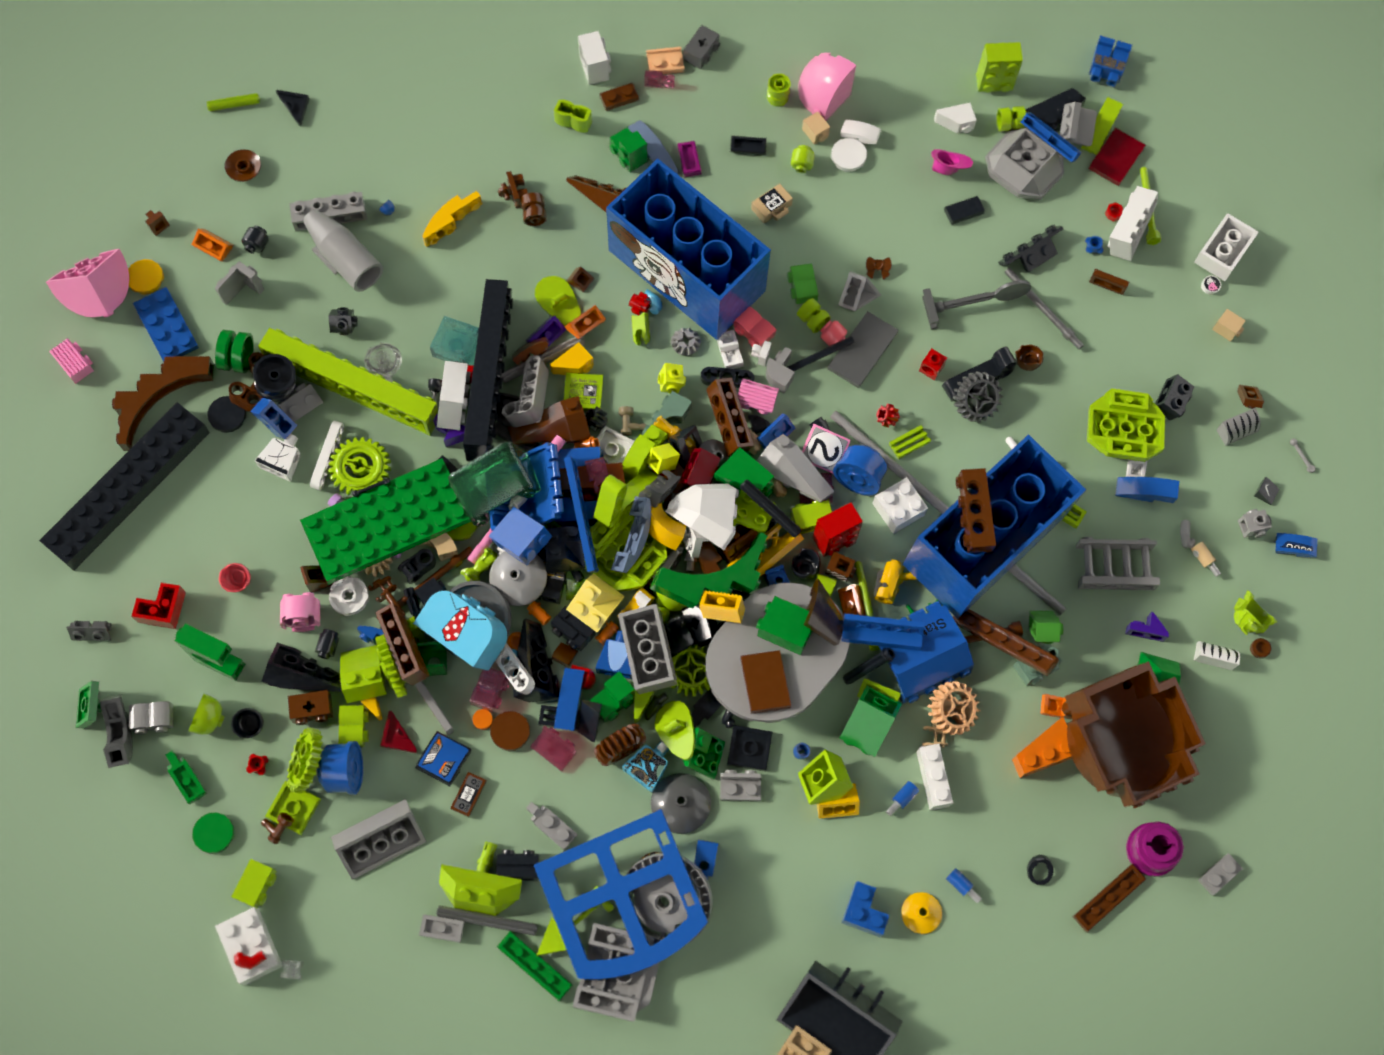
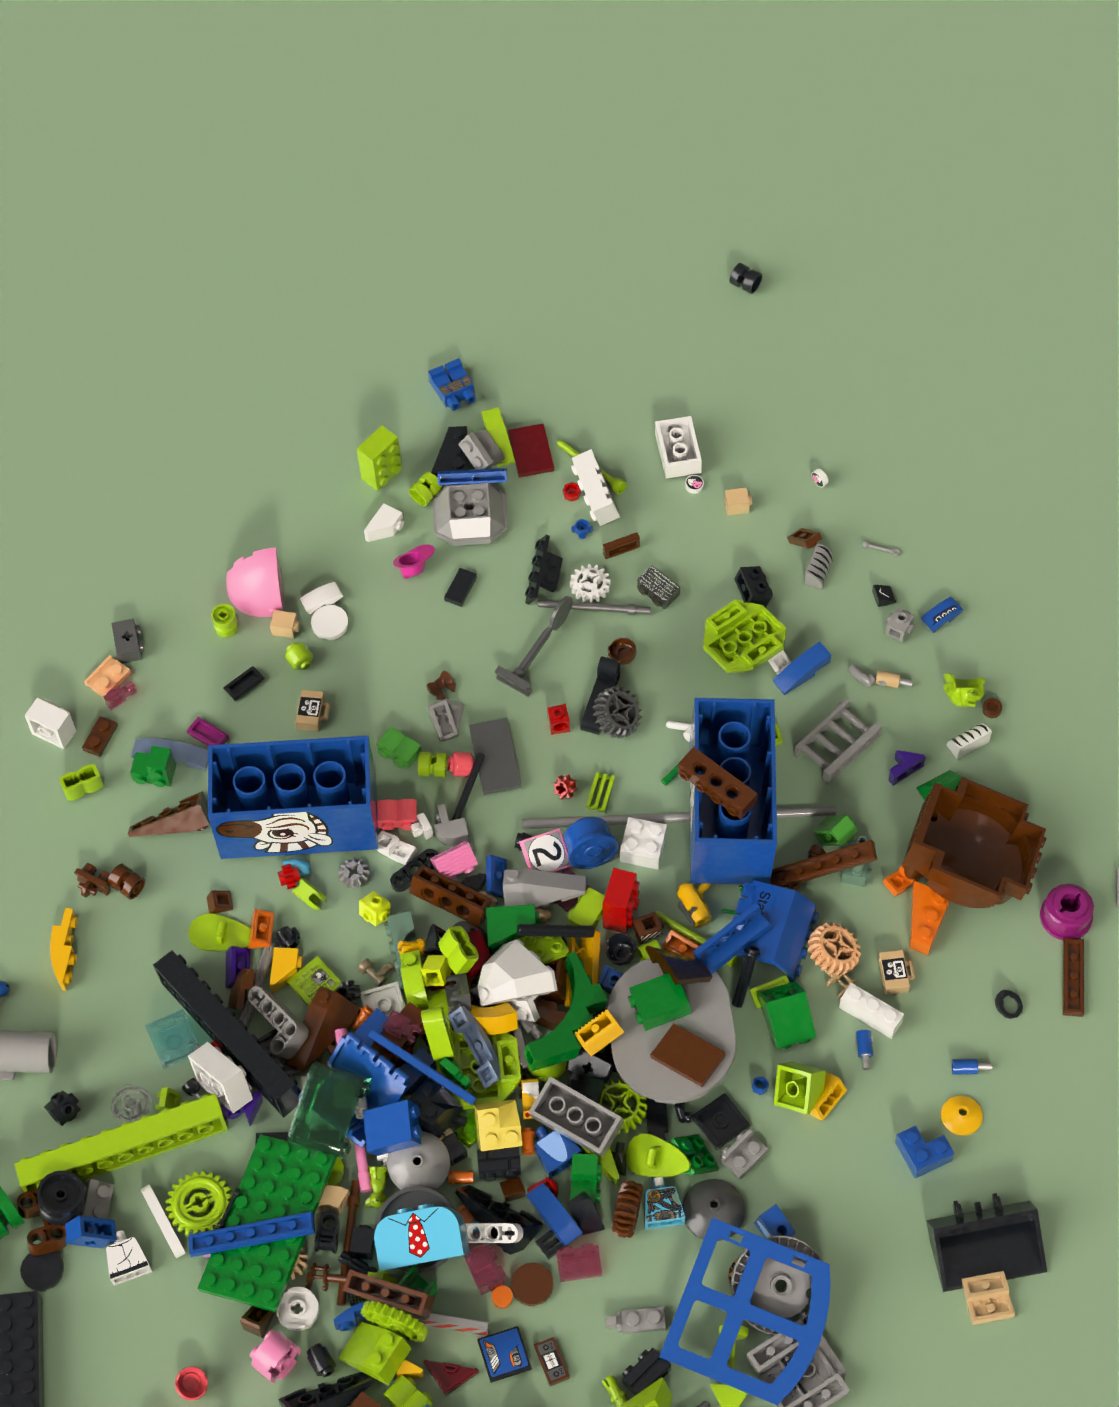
camera: 40 degrees left, 10 degrees down
(365, 518) = (251, 1234): none -> blue tile
(411, 379) = (168, 1099): none -> lime tile
(595, 344) = (287, 937): none -> black gear
(600, 535) = (452, 1070): none -> green plate
(687, 458) = (458, 950): none -> lime brick
(981, 766) = (894, 972): none -> tan piece
(1066, 288) = (589, 584): none -> white gear
(1103, 335) = (658, 587): none -> clear smoke brick
(1310, 363) = (820, 477): none -> white tile

